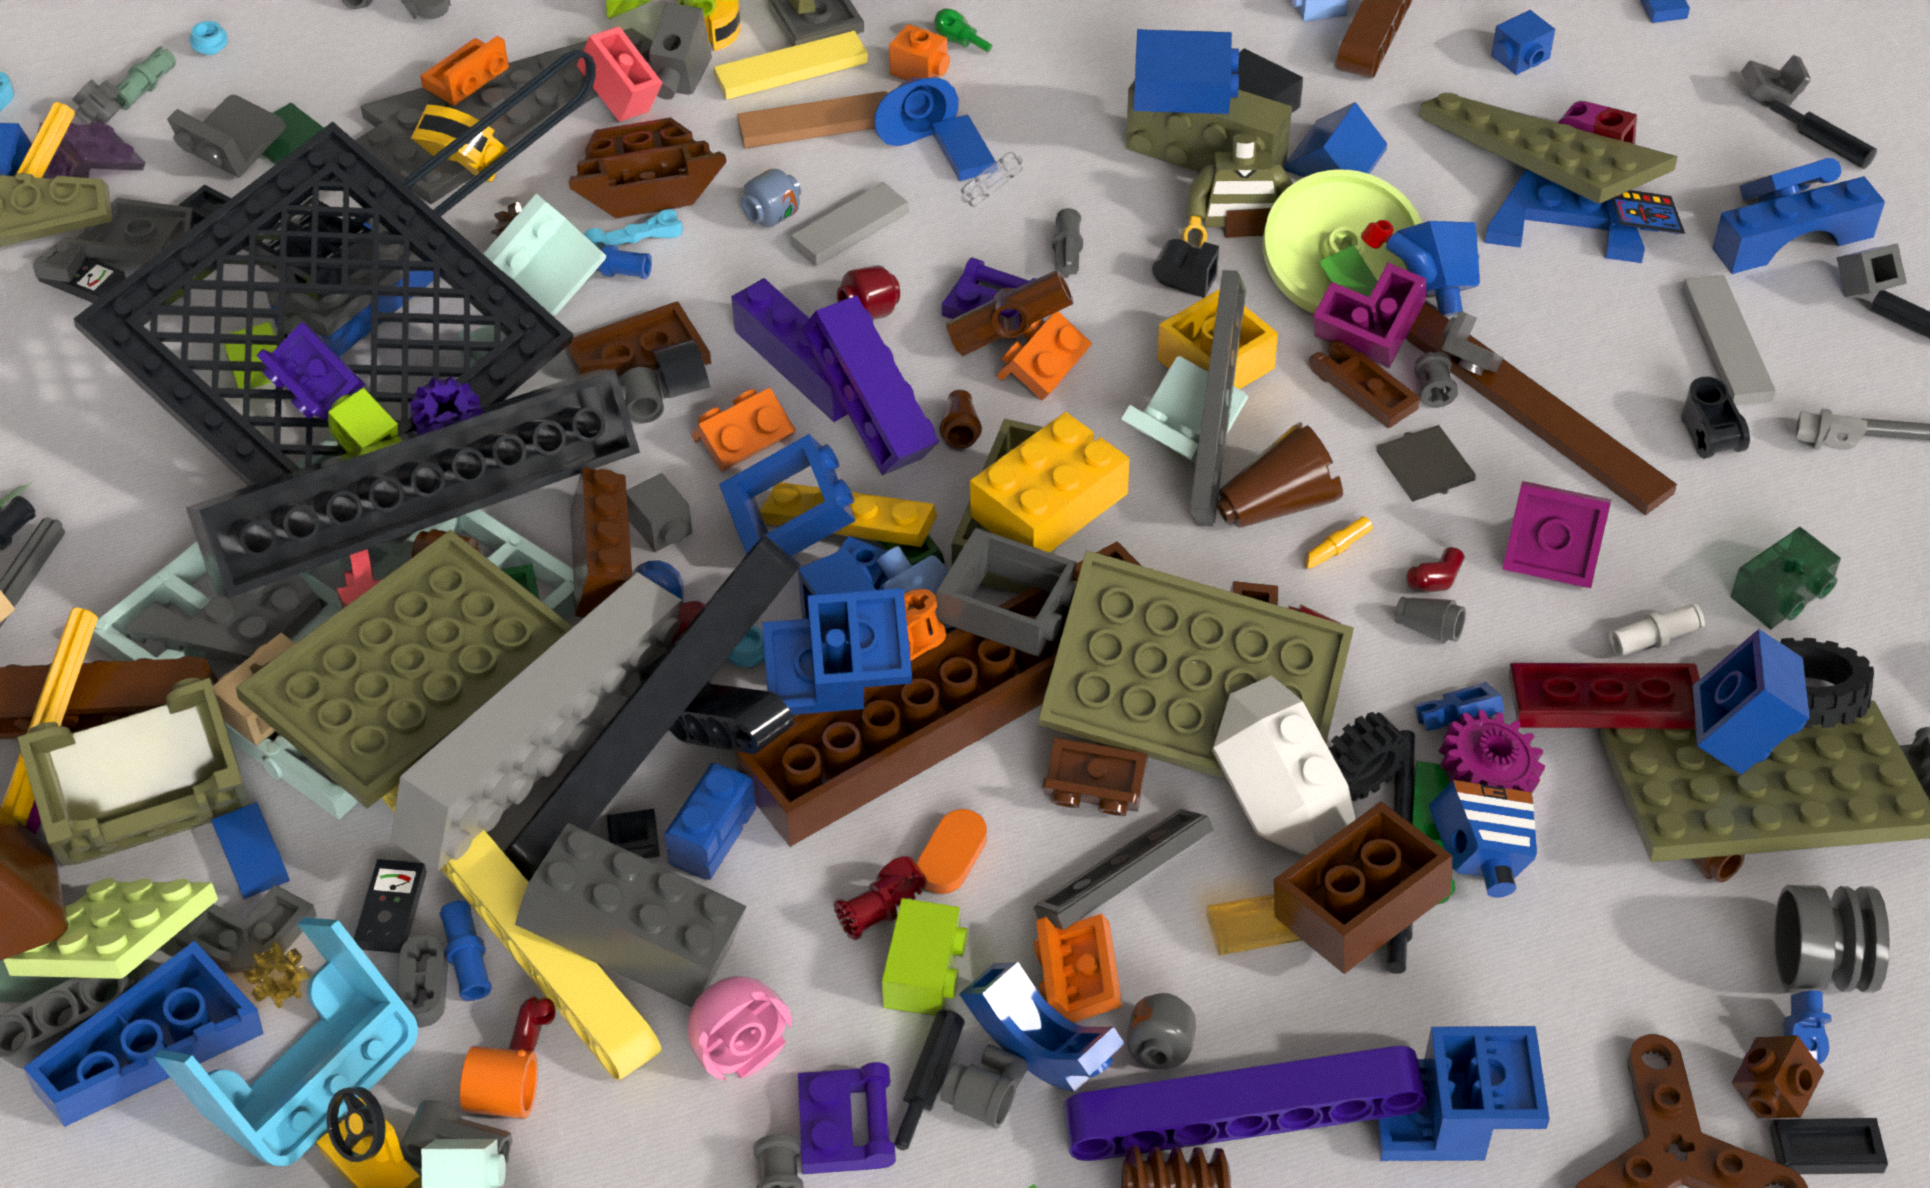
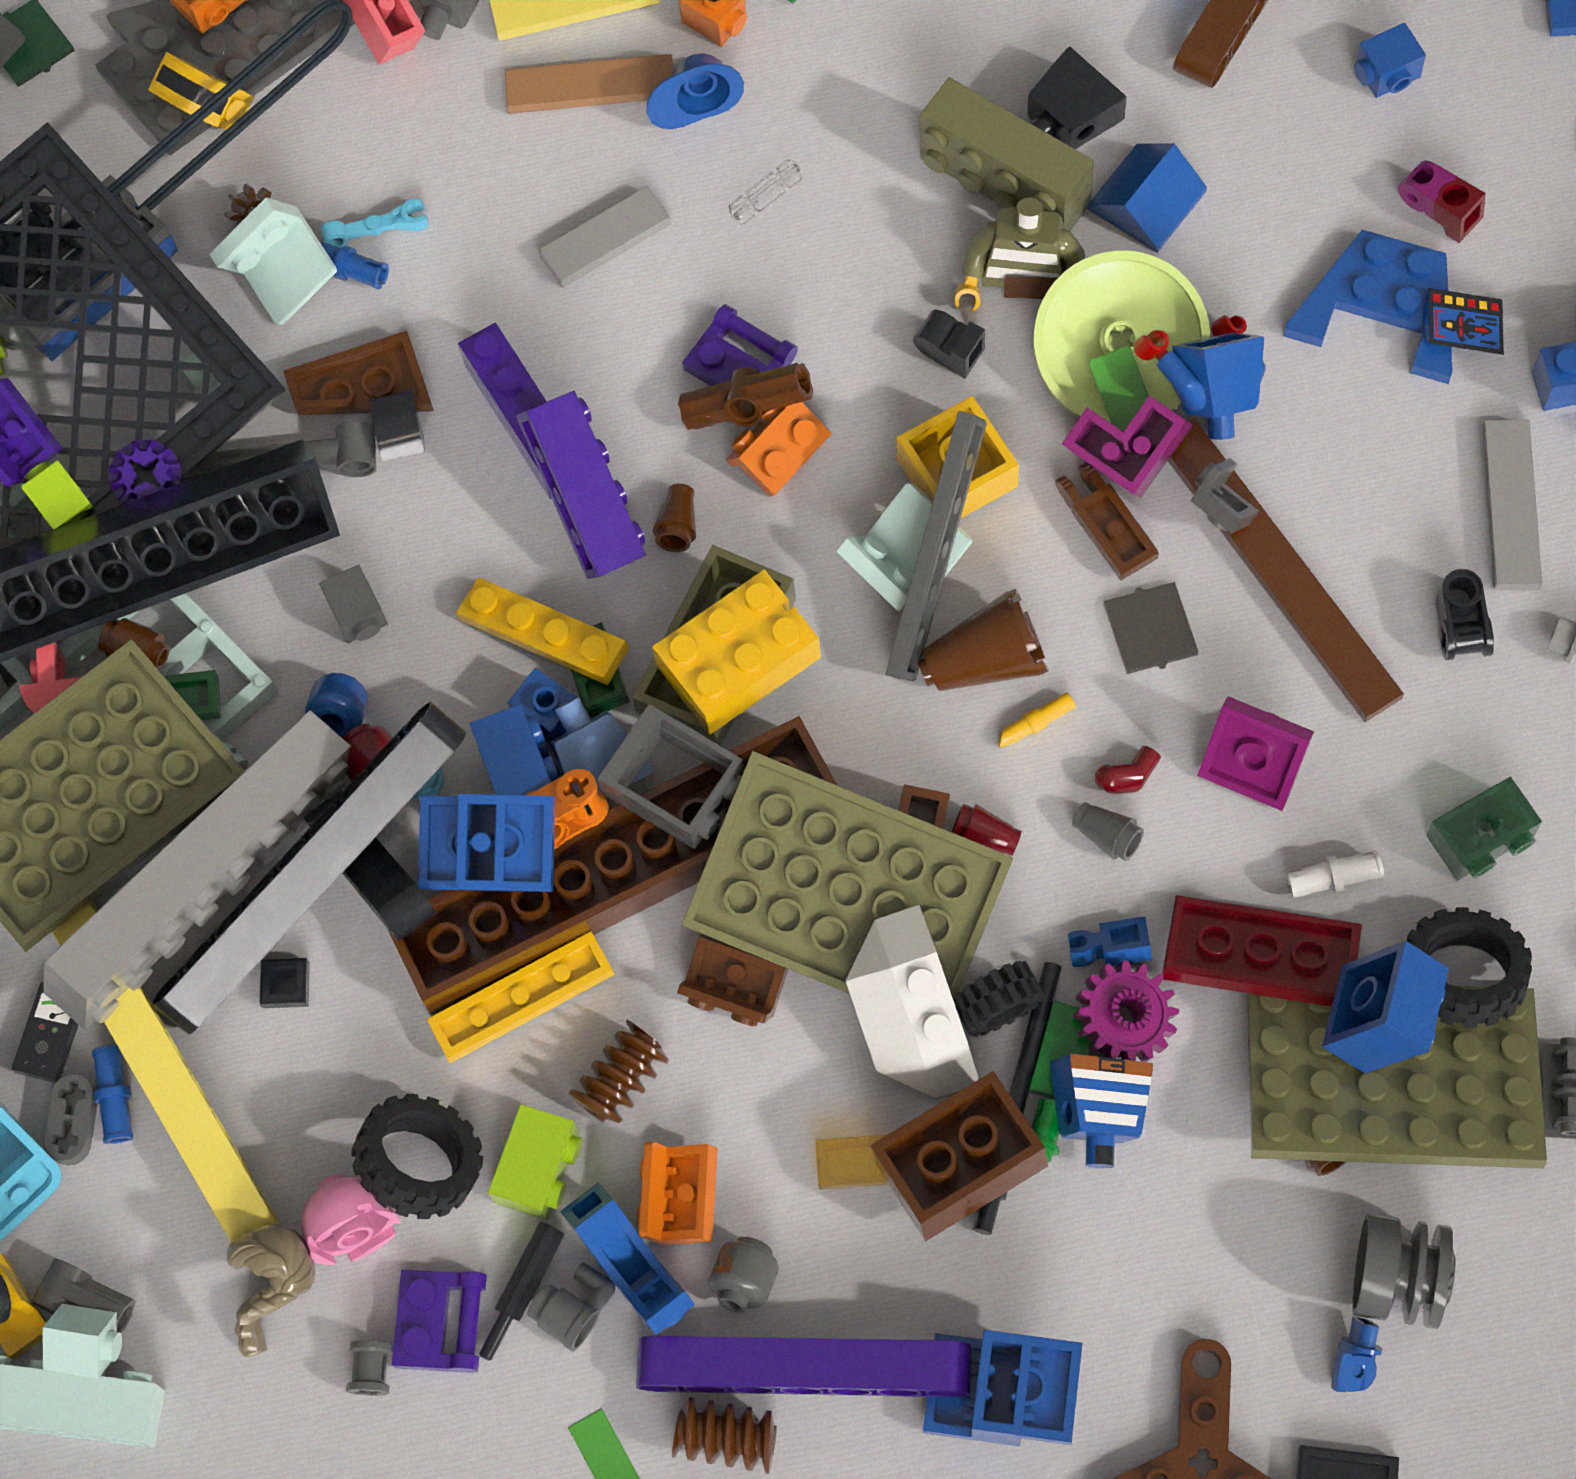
camera: 15 degrees right, 20 degrees up
(498, 1082) = (127, 1246): orange piece -> none
(531, 1017) = (164, 1179): dark red arm -> none
(599, 538) = (286, 647): reddish brown brick -> none
(630, 915) = (261, 1094): dark grey brick -> none
(645, 168) = (393, 138): reddish brown wedge -> none
(677, 1078) = (281, 1257): none -> dark tan hair
(710, 821) = (356, 984): blue brick -> none
(743, 429) = (453, 505): orange bracket -> none
(771, 197) = (523, 198): sand blue head -> none
(793, 977) = (399, 1189): none -> black tyre
(805, 528) = (440, 625): blue window -> none
(874, 287) = (607, 342): dark red head -> none
(879, 817) = (520, 997): none -> yellow plate
(895, 881) = (499, 1096): dark red connector -> none
(953, 850) = (583, 1041): orange tile -> none
(962, 146) = (743, 141): blue tile -> none
(995, 869) = (620, 1074): none -> reddish brown piece
(1067, 242) = (830, 292): dark grey axle -> none
(1123, 868) = (742, 1088): dark grey tile -> none
(1185, 71) = (980, 107): blue brick -> none
(1435, 379) = (1182, 527): dark grey bush -> none
(1563, 154) = (1393, 237): olive wing -> none
(1778, 1077) = (1311, 1409): reddish brown brick -> none

